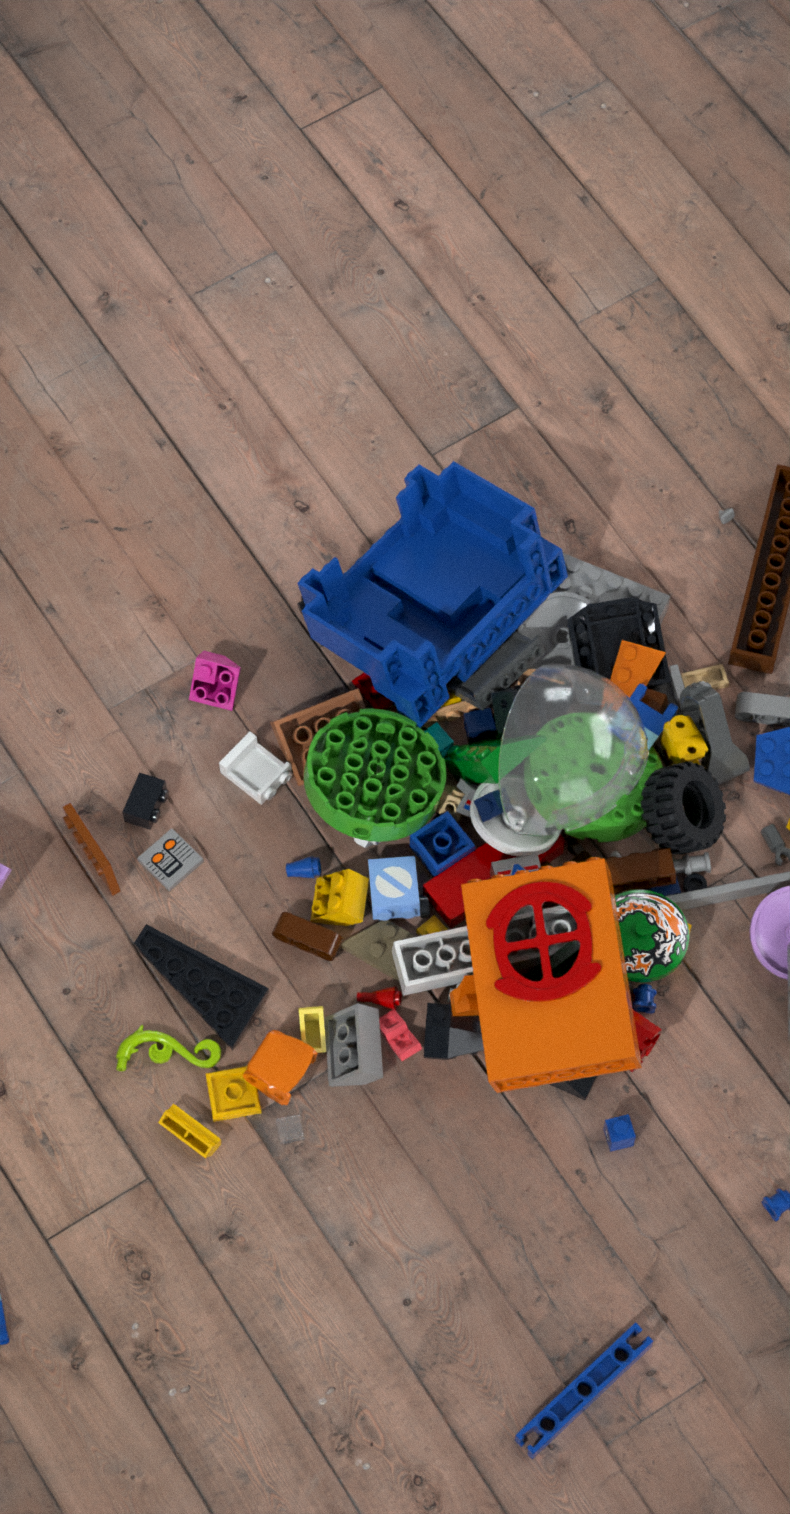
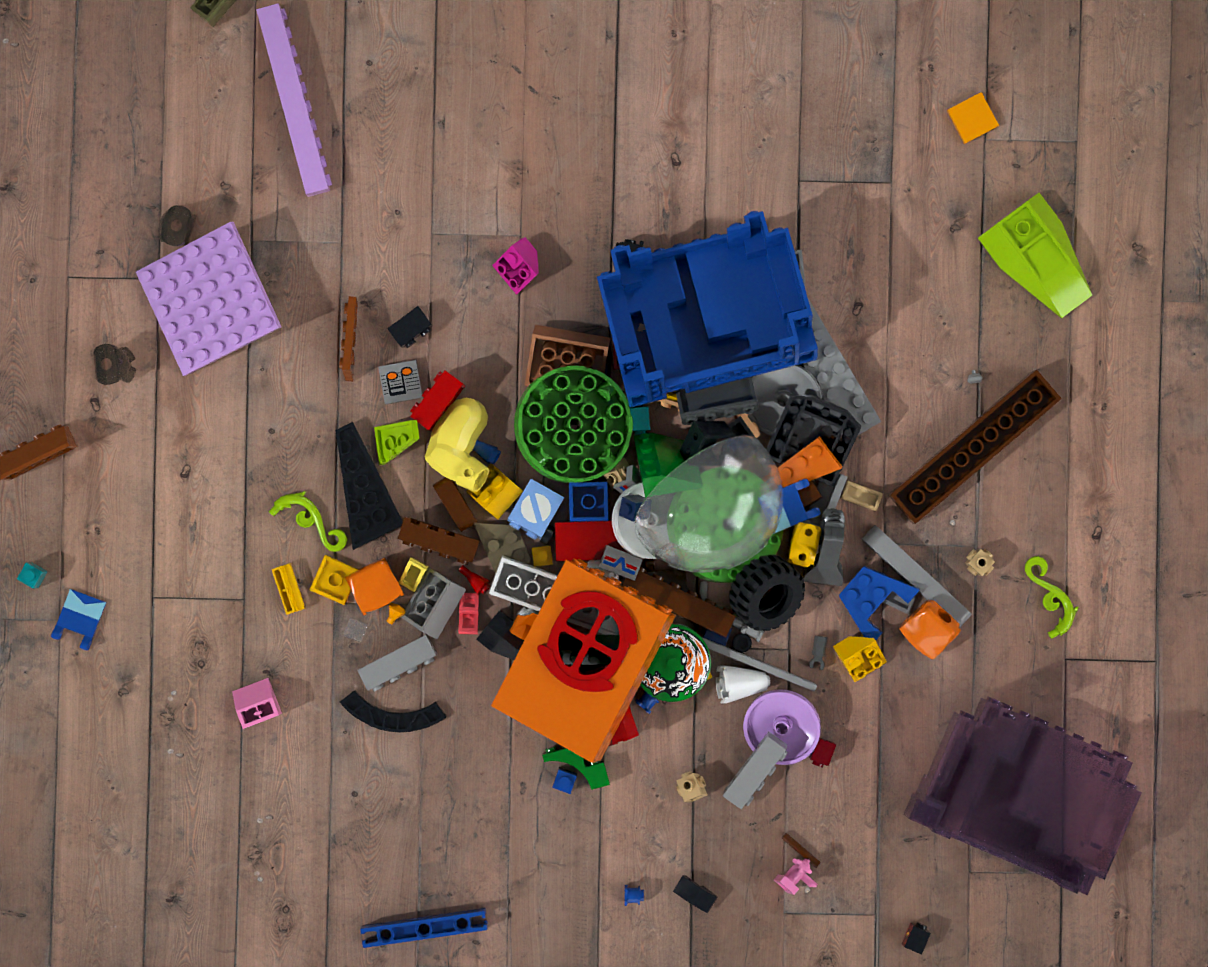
camera: 30 degrees right, 25 degrees up
(201, 908) = (394, 439): none -> lime wing
(220, 846) = (436, 400): none -> red brick
(235, 1271) = (256, 703): none -> bright pink slope
(255, 769) = (502, 354): white panel -> none
(265, 876) = (453, 442): none -> light yellow piece
(315, 979) = (439, 540): none -> reddish brown wedge
(320, 1082) = (395, 612): none -> light orange rock
(357, 1130) = (397, 662): none -> light grey brick
(393, 1197) = (389, 720): none -> black tile
(479, 725) = (675, 426): dark blue brick -> none
(550, 312) = (972, 118): none -> light orange tile
(644, 1106) = (594, 772): none -> green arch
(699, 382) = (1038, 255): none -> lime wedge
(720, 920) = (739, 683): none -> white cone
(753, 1051) = (691, 787): none -> tan brick

